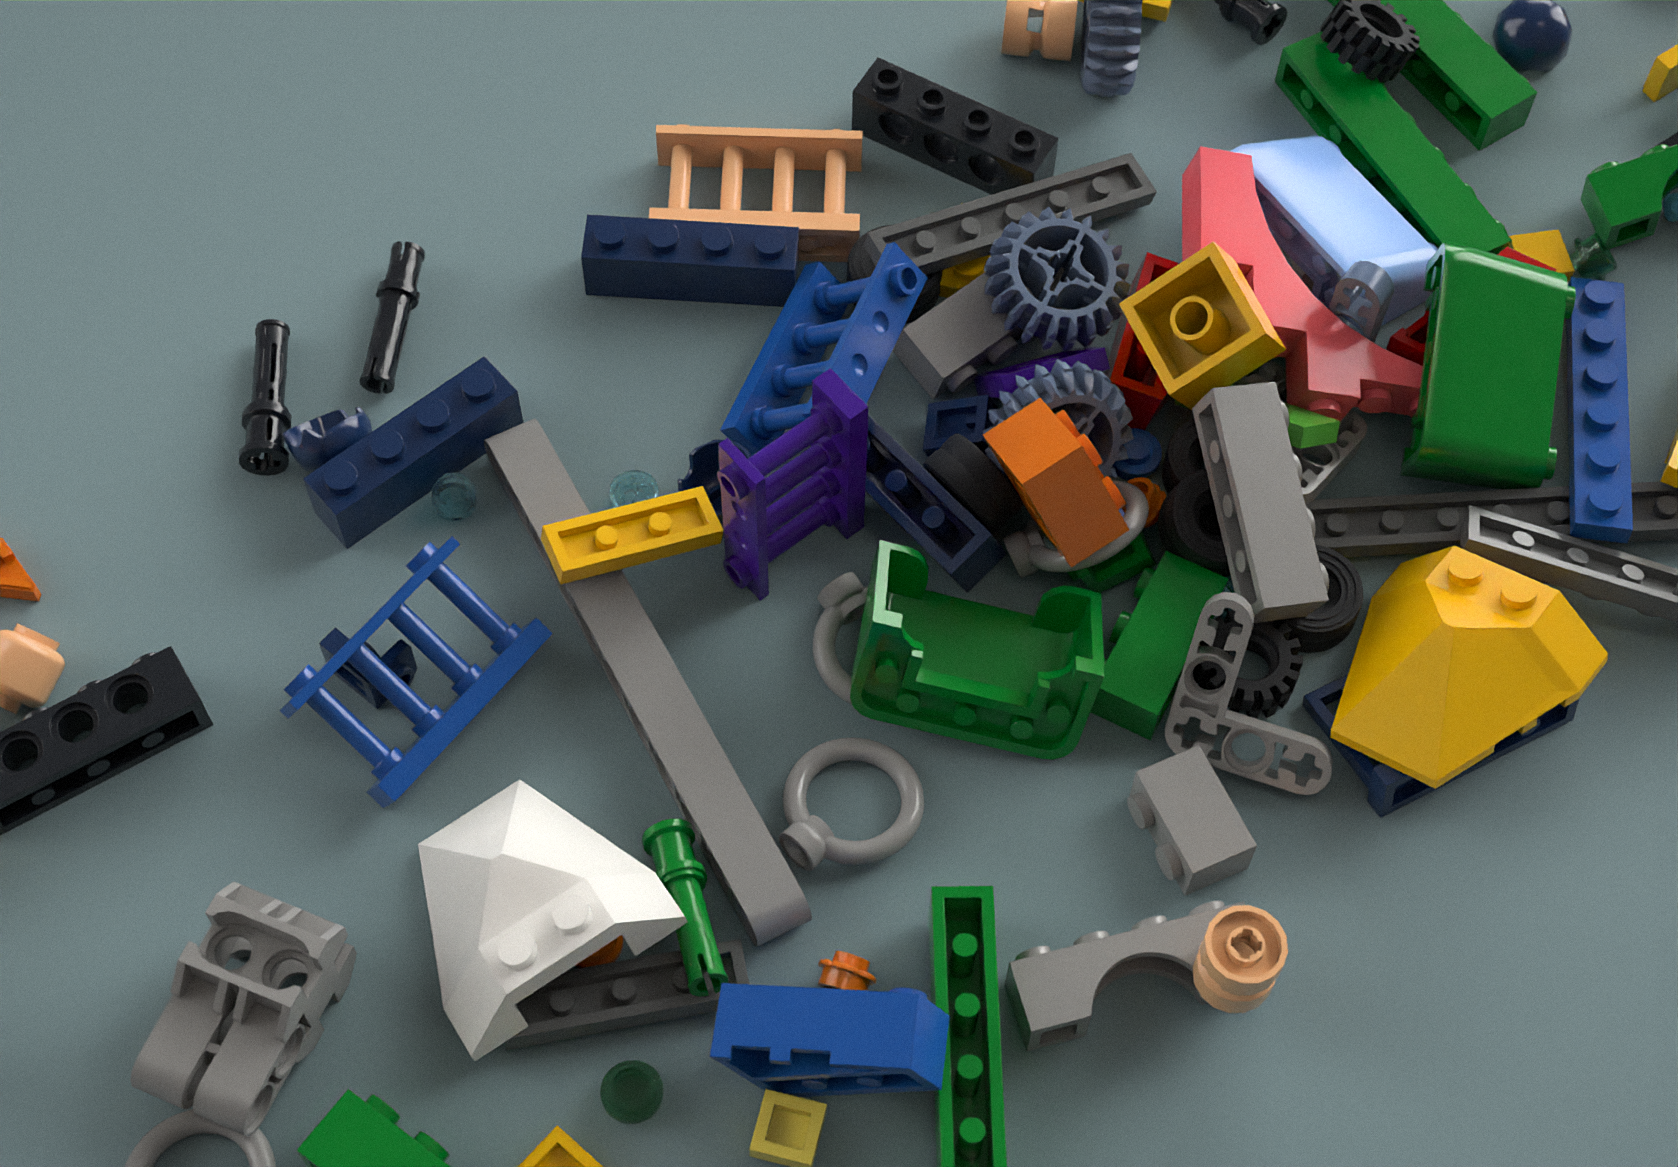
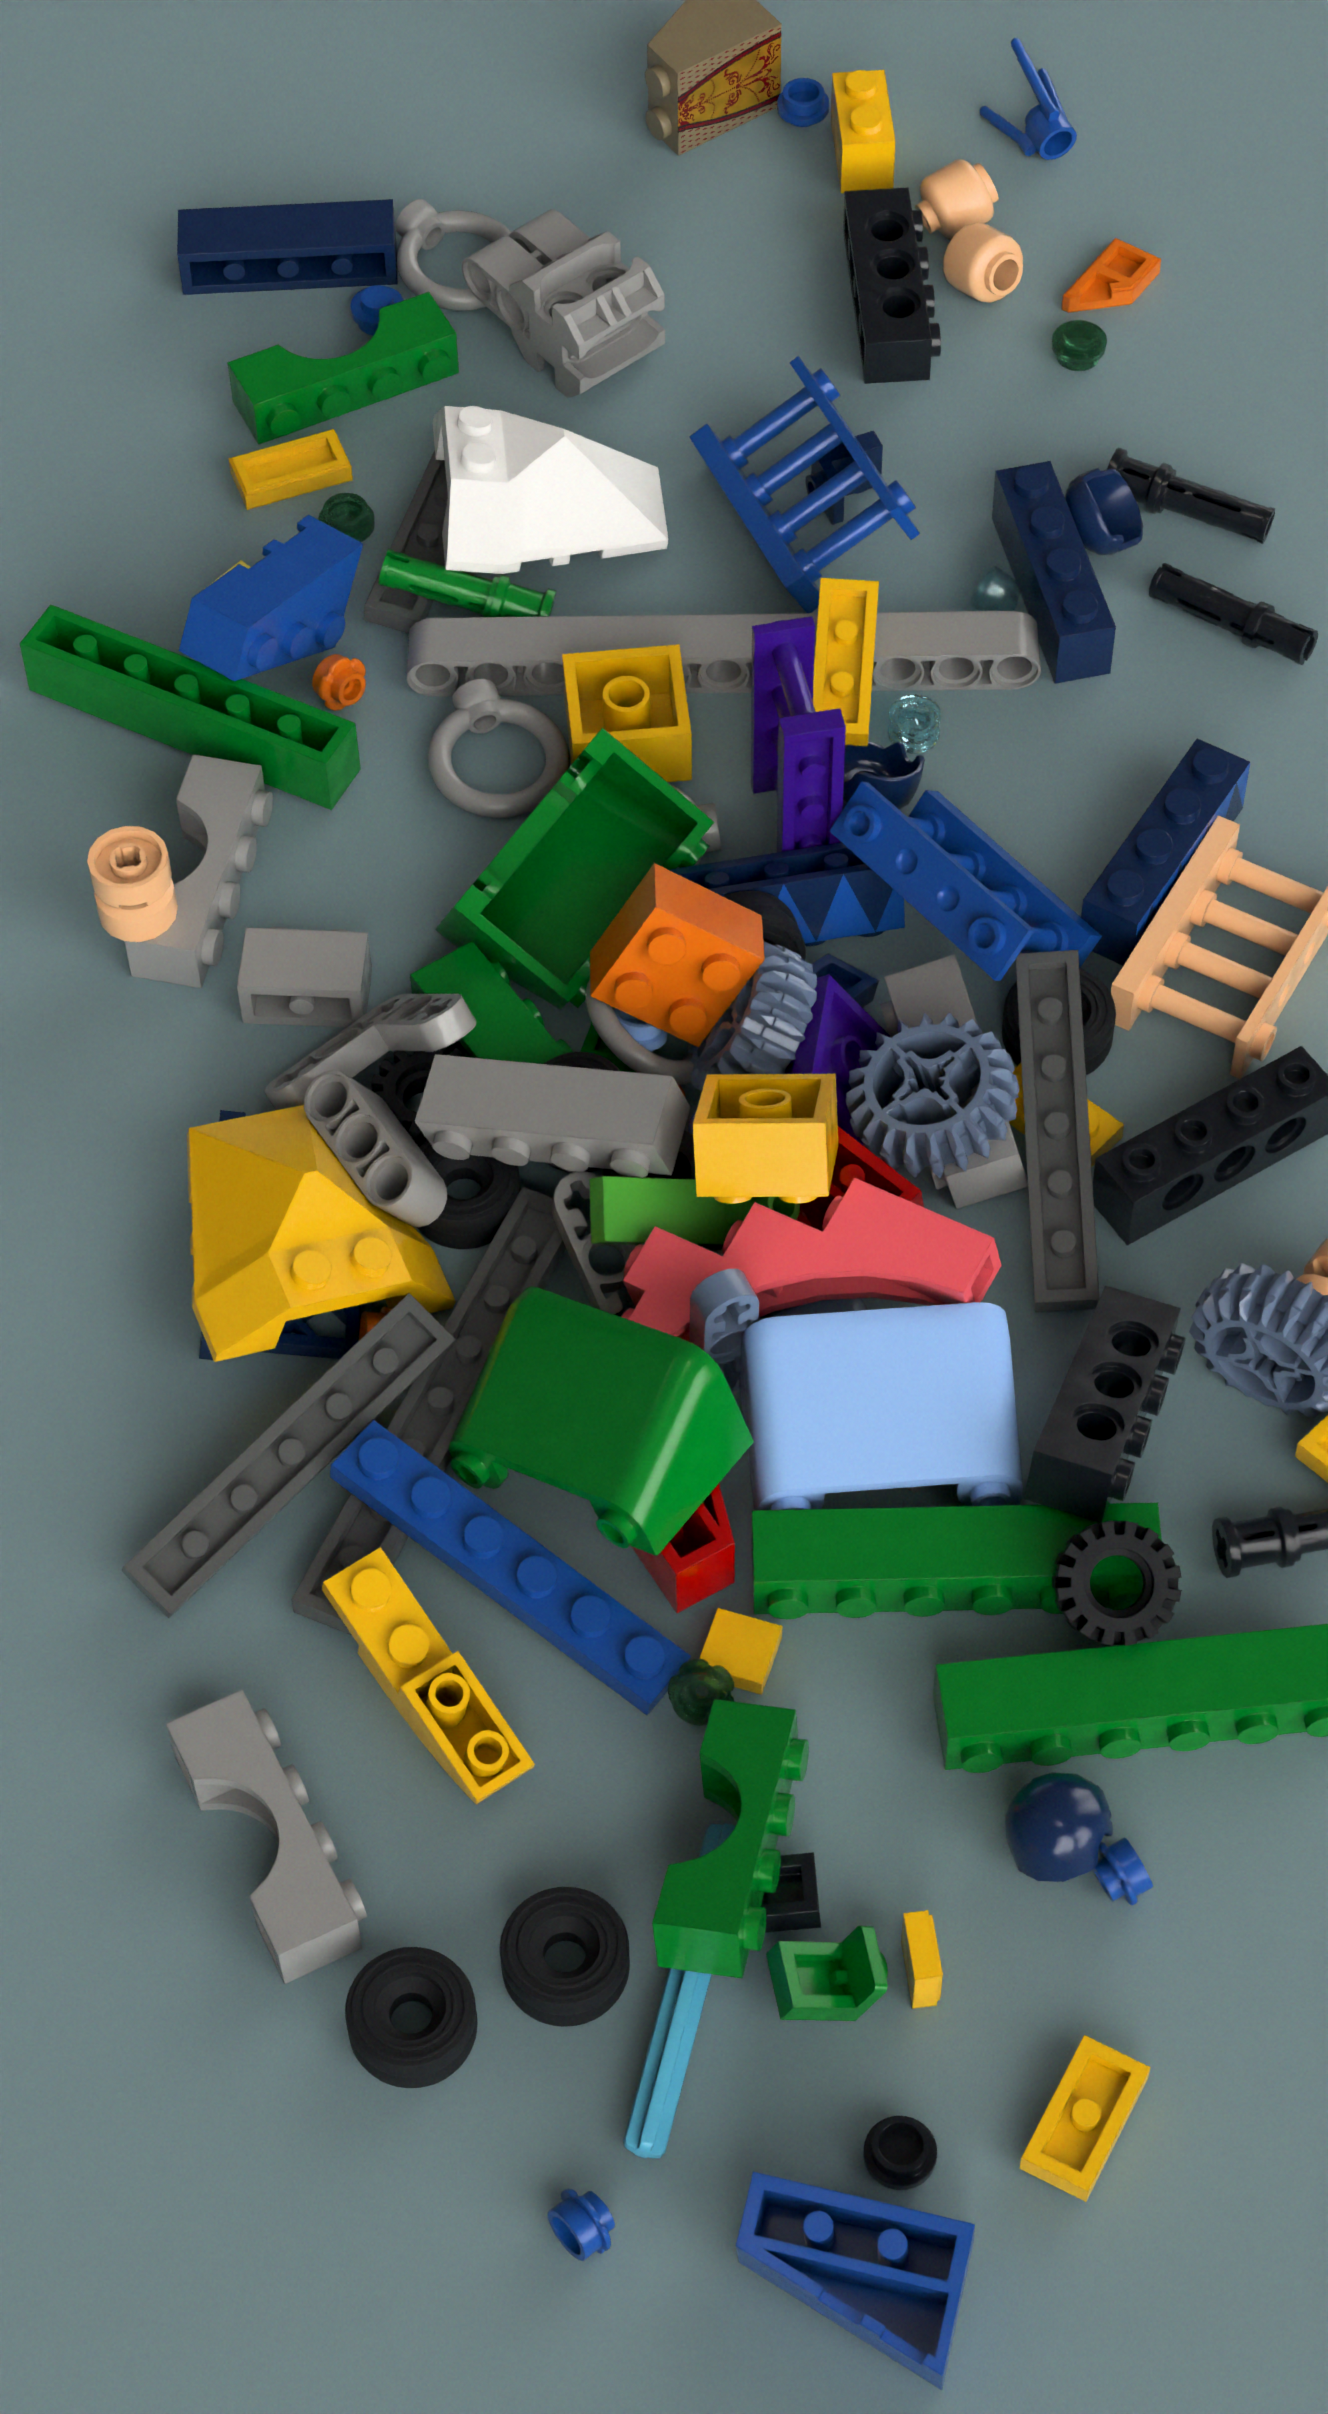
camera: 120 degrees right, 5 degrees down
(94, 556) = (1079, 344): none -> clear green plate
(771, 693) = (637, 700): none -> yellow brick
(1230, 101) = (1104, 1405): none -> black brick
(1349, 643) = (375, 1149): none -> light grey beam

